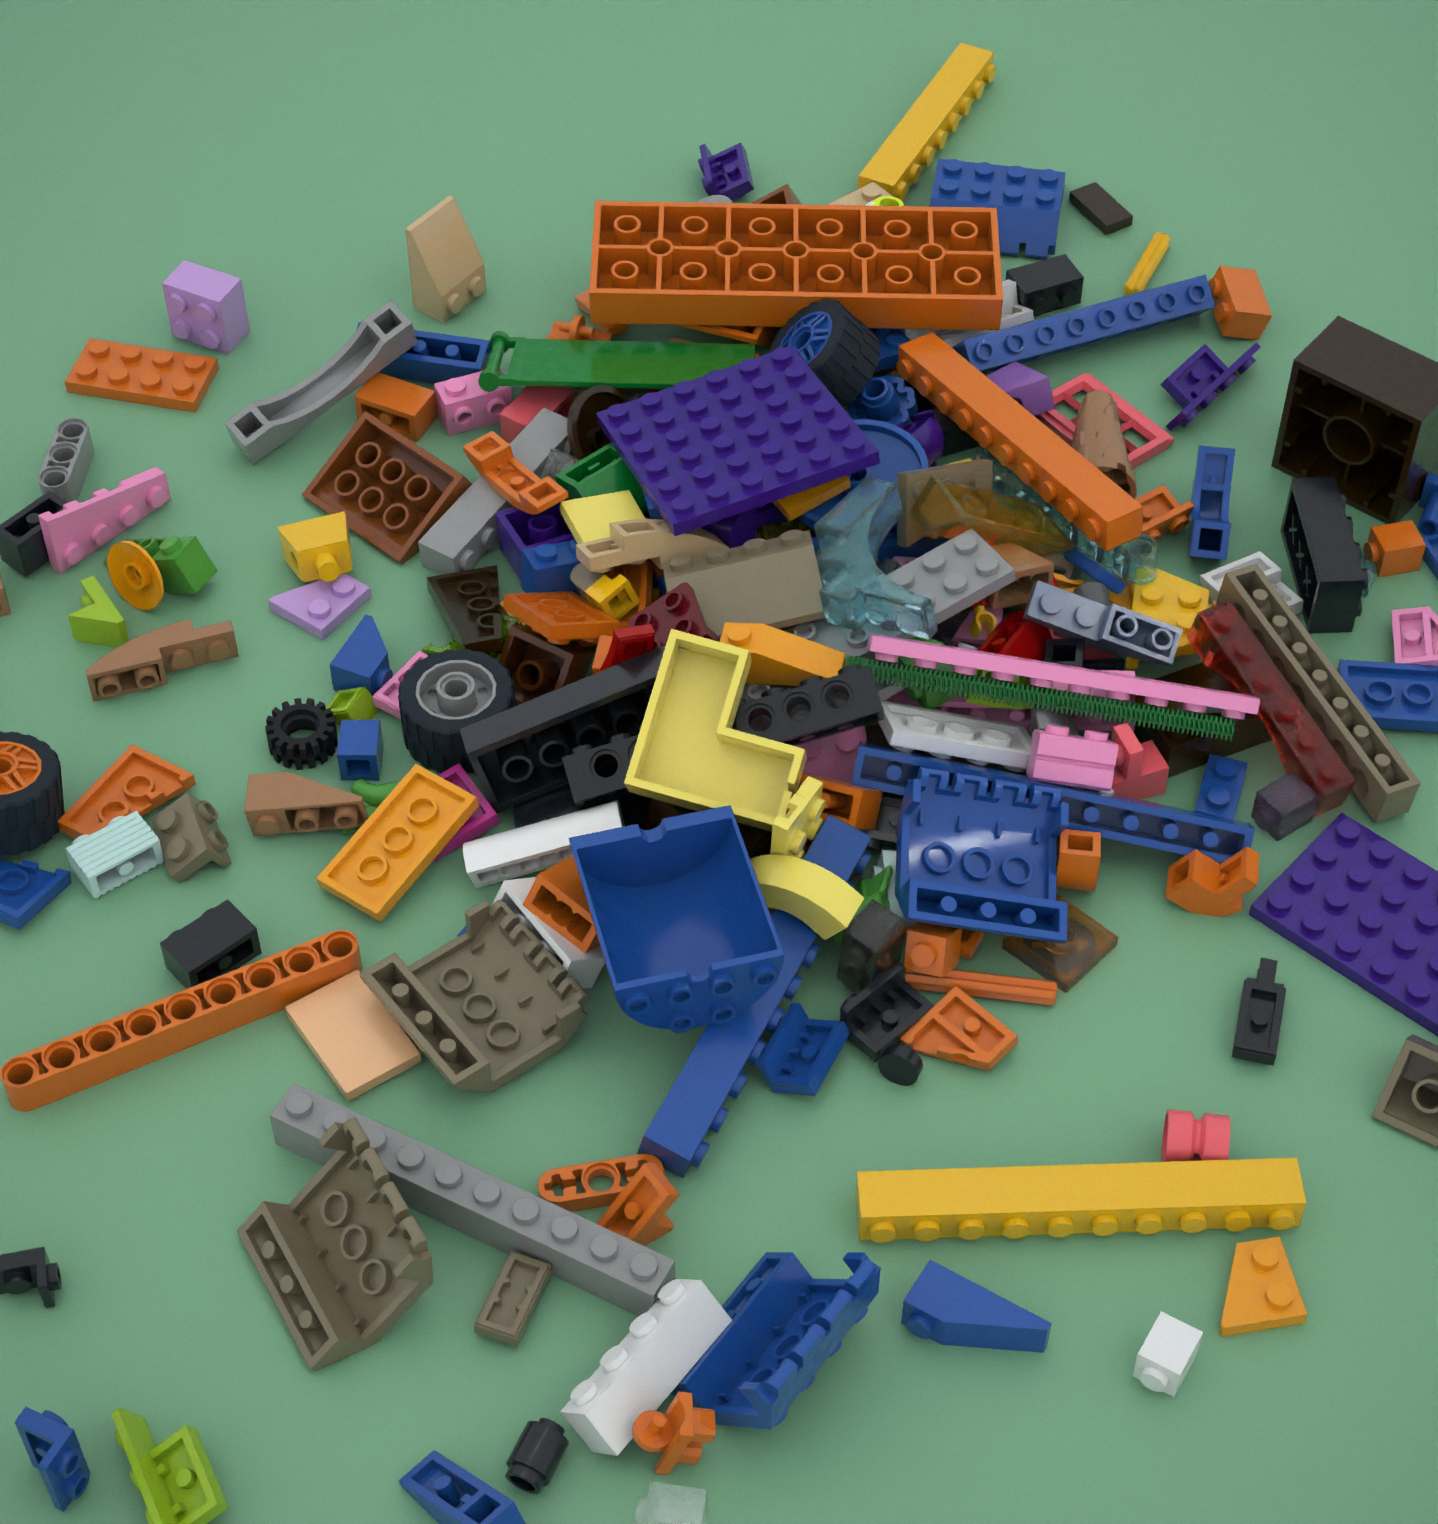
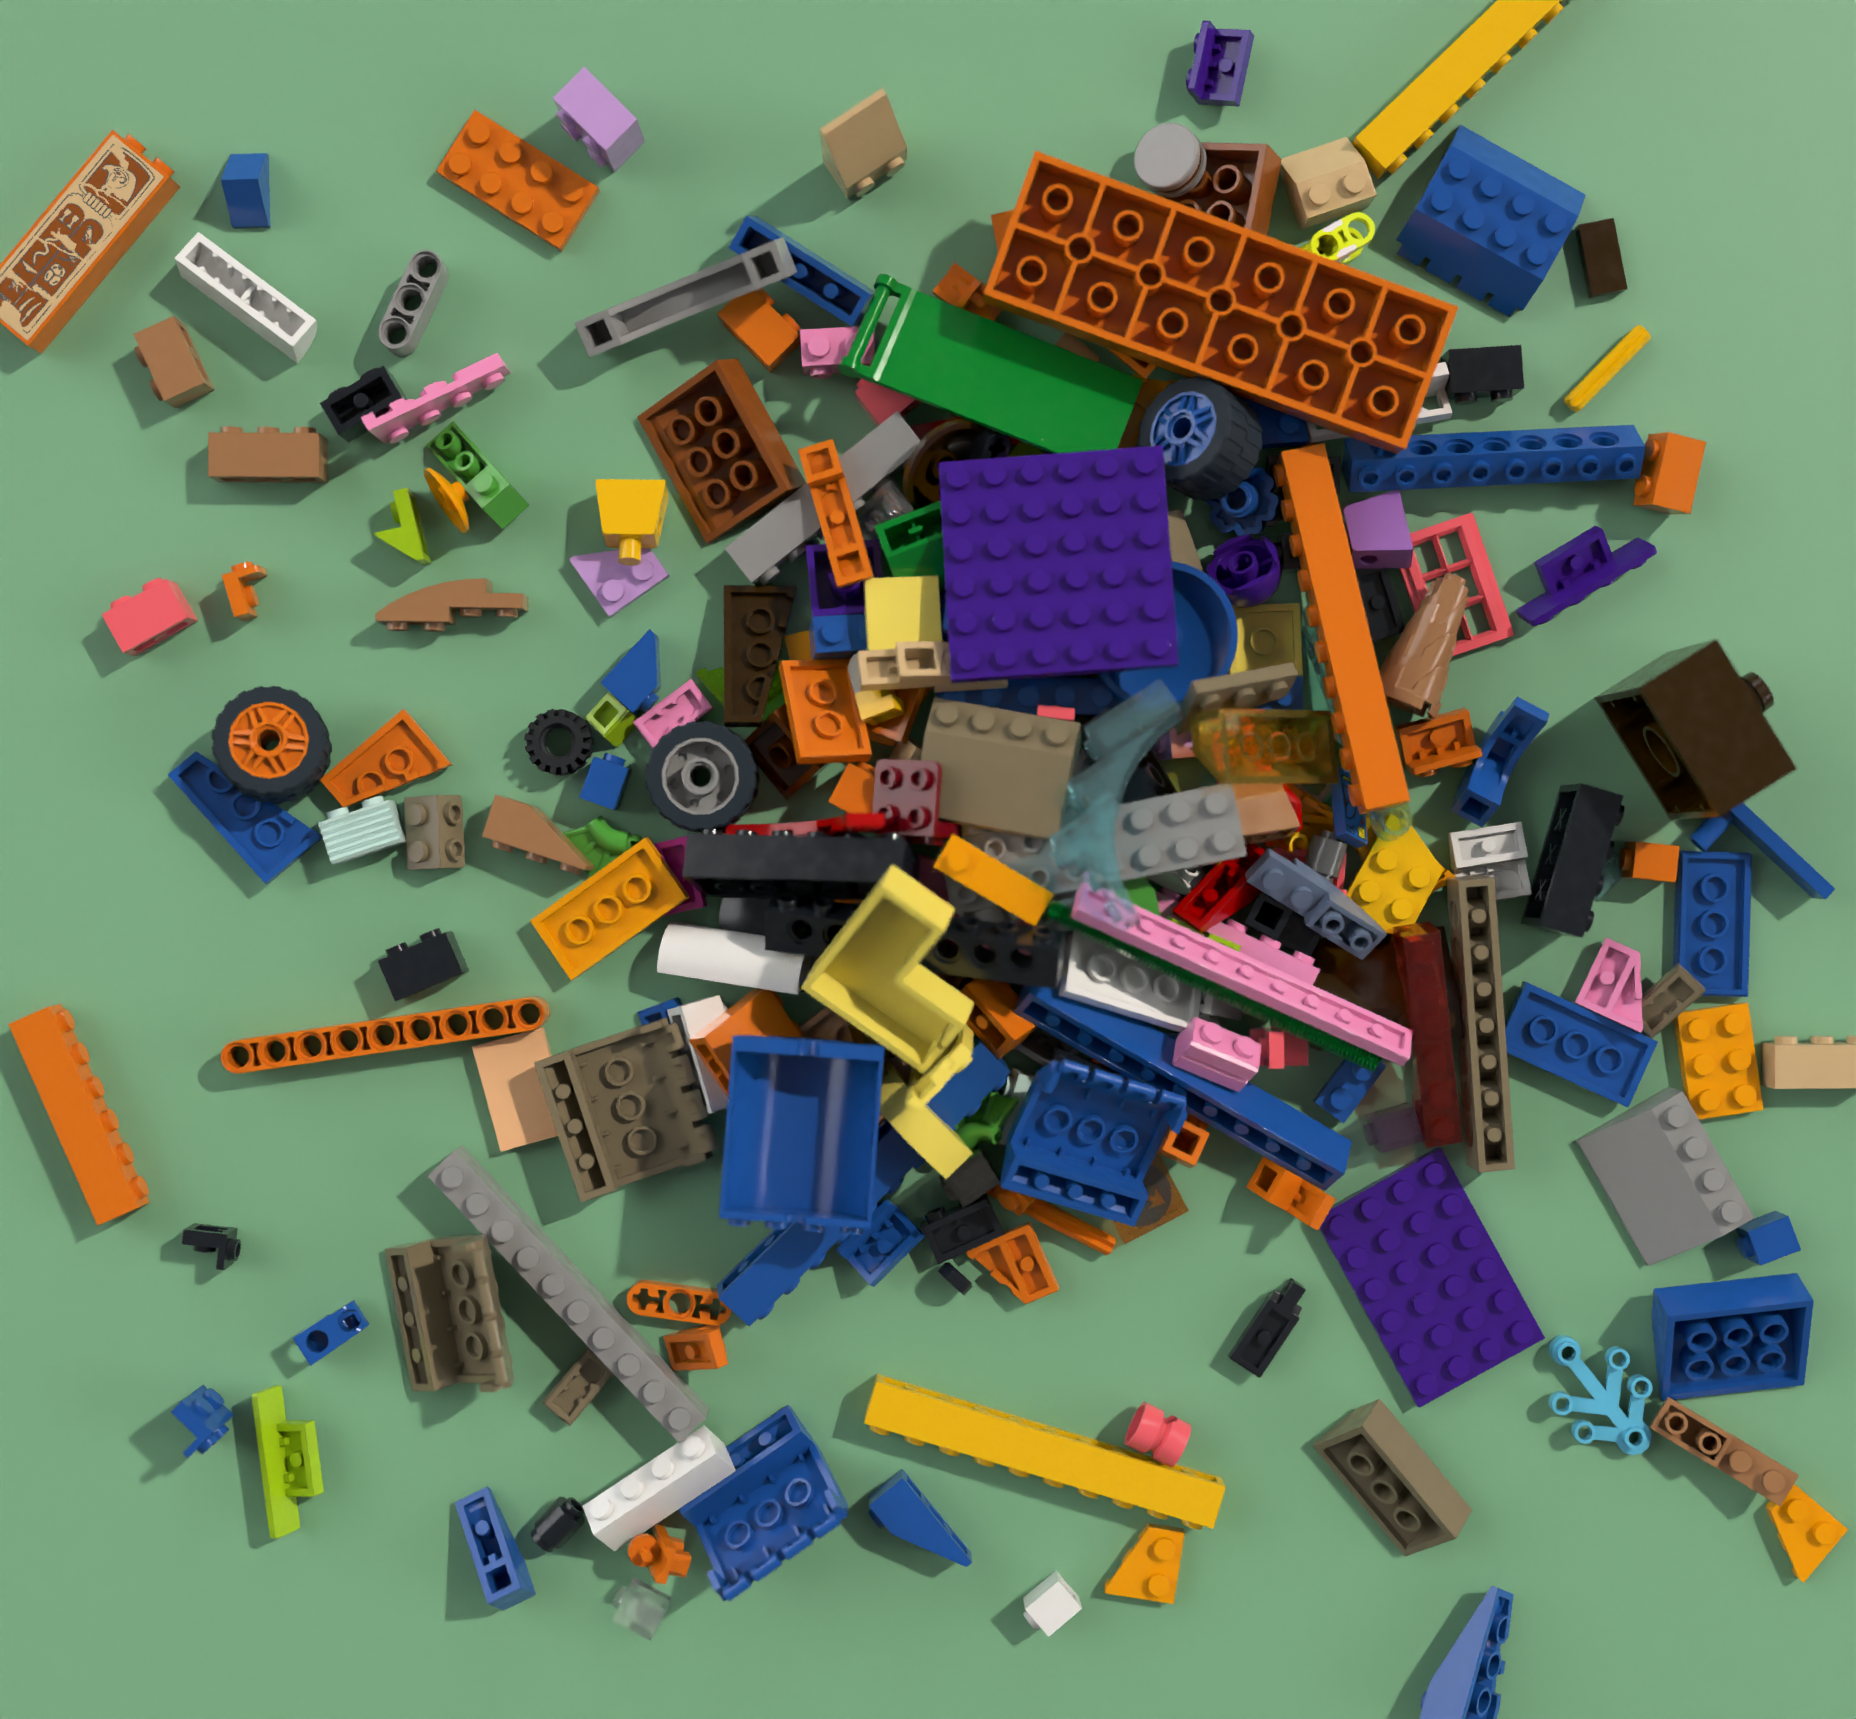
camera: 20 degrees right, 40 degrees up
(192, 1329) = (330, 1332): none -> blue leg

